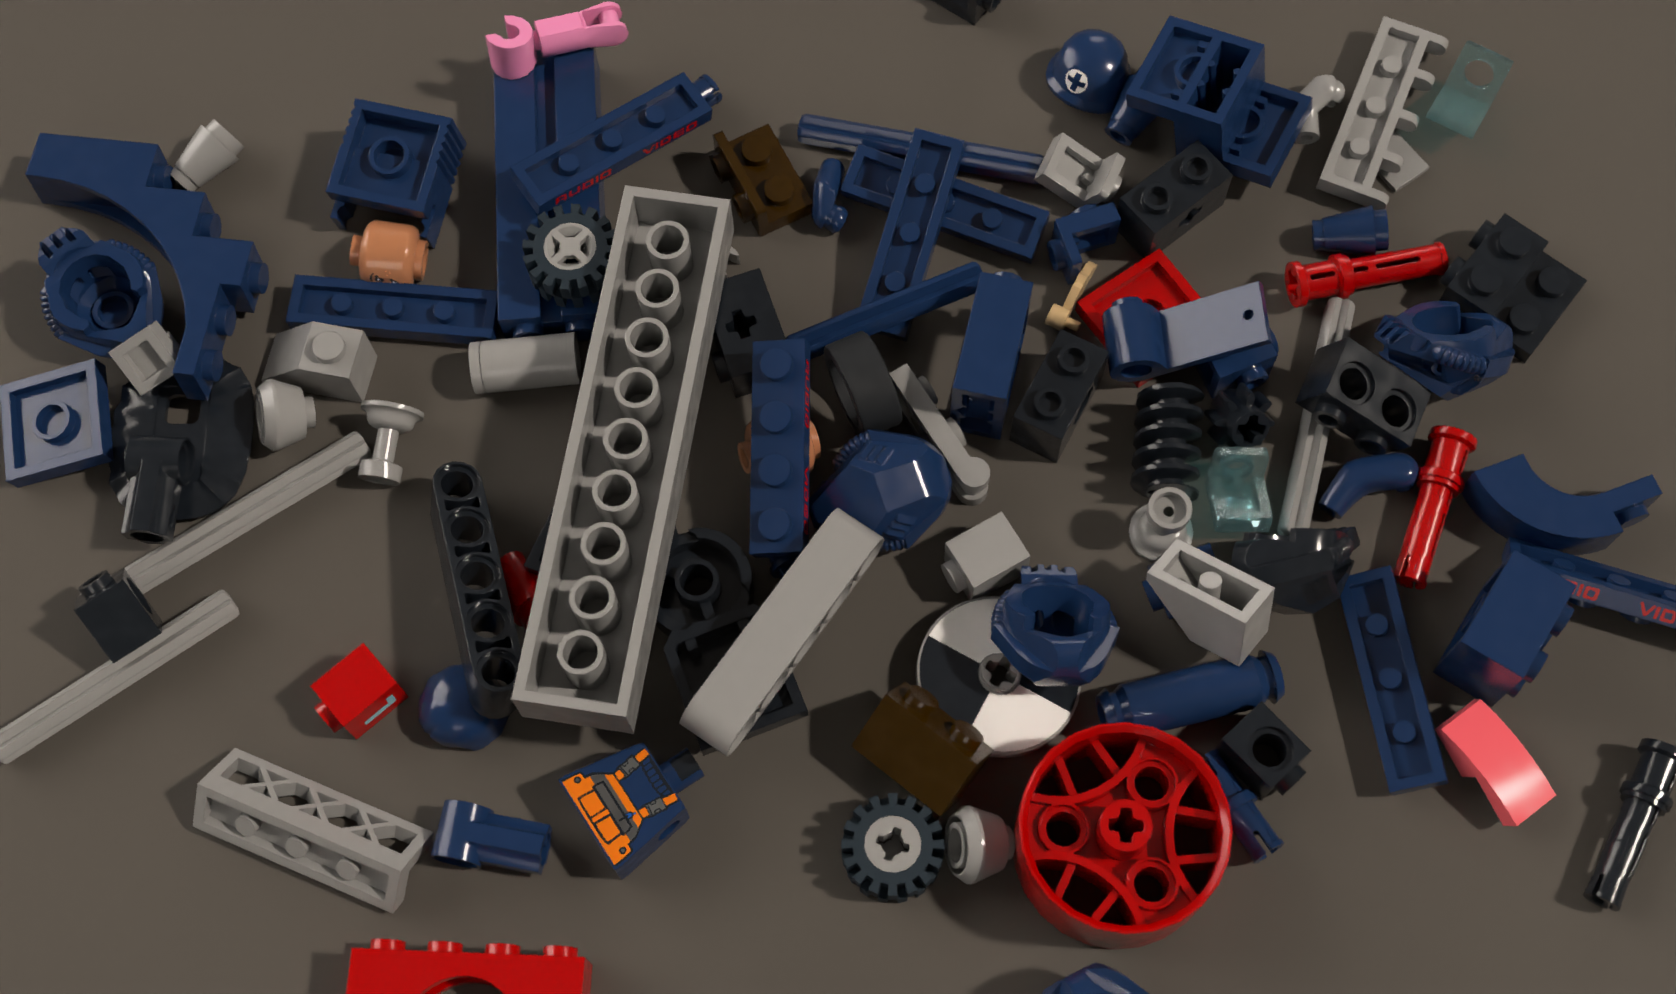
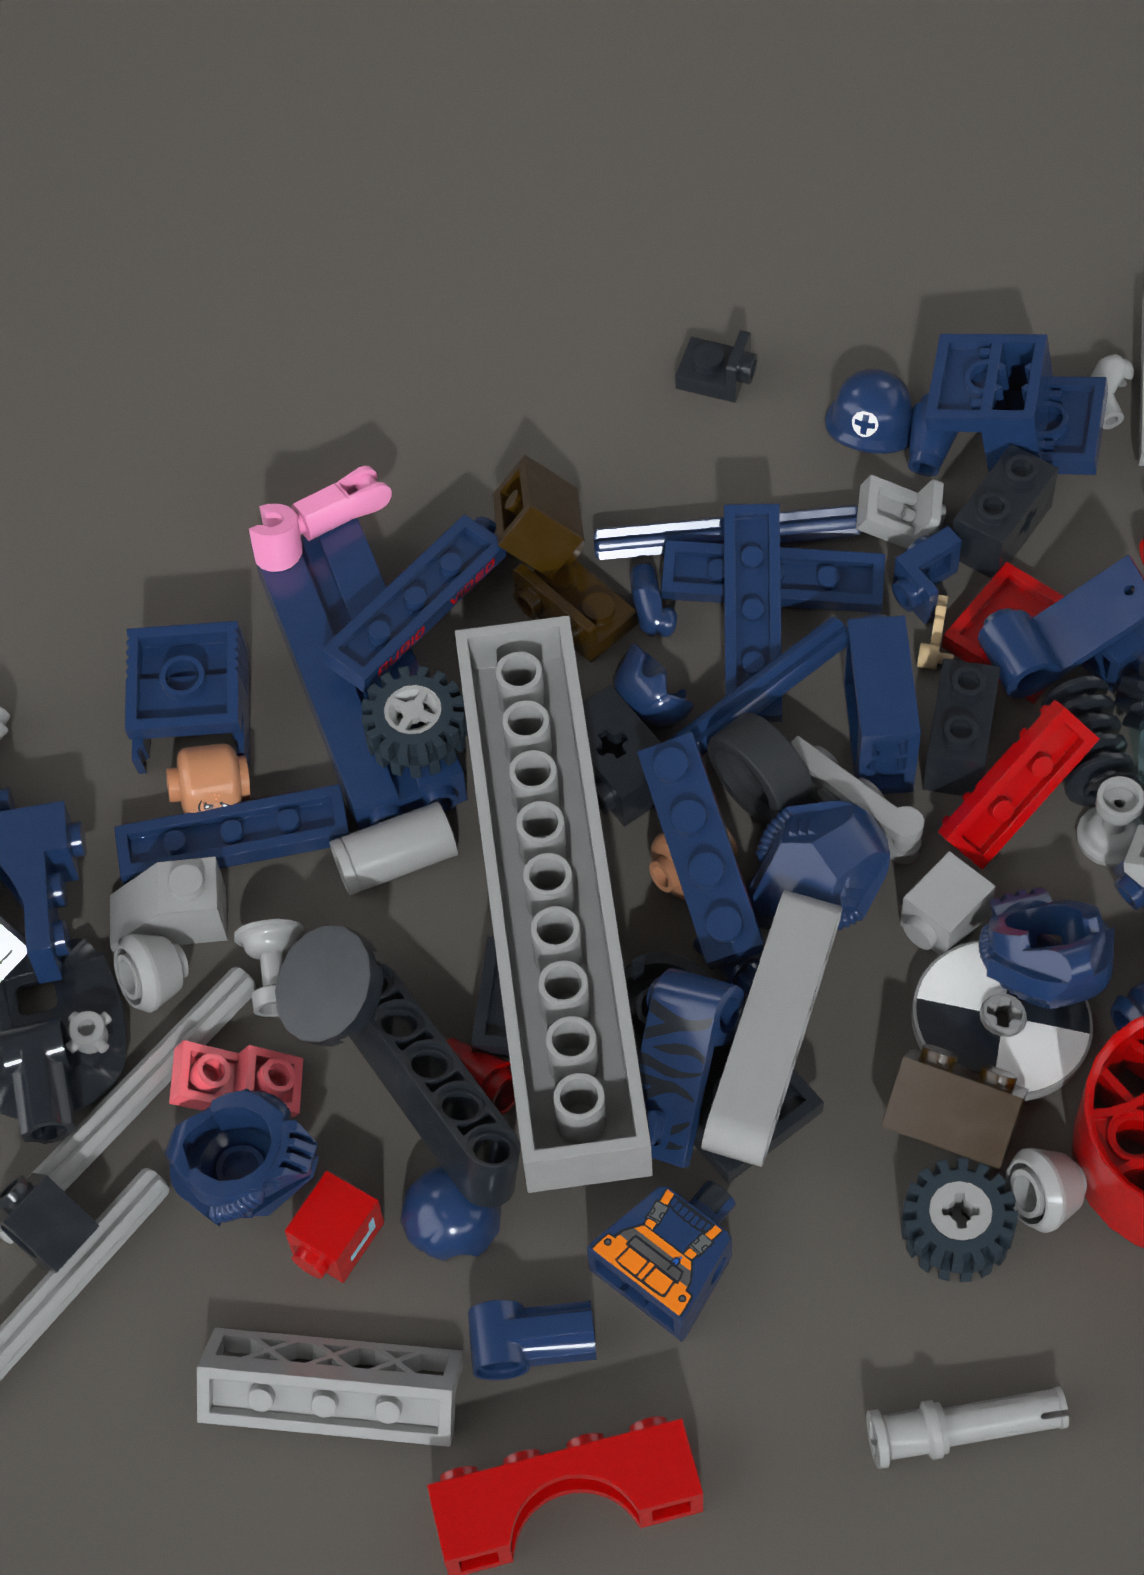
camera: 15 degrees left, 10 degrees down
(211, 455) = (88, 1032): none -> light grey piece
(295, 607) = (240, 1157): none -> dark blue helmet
(323, 534) = (208, 1072): none -> coral slope
(417, 478) = (328, 985): none -> black tile
(706, 605) = (682, 1027): none -> dark blue door
(750, 92) = (538, 517): none -> dark brown brick
(791, 280) = (644, 688): none -> dark blue hair
(1085, 466) = (1018, 784): none -> red plate

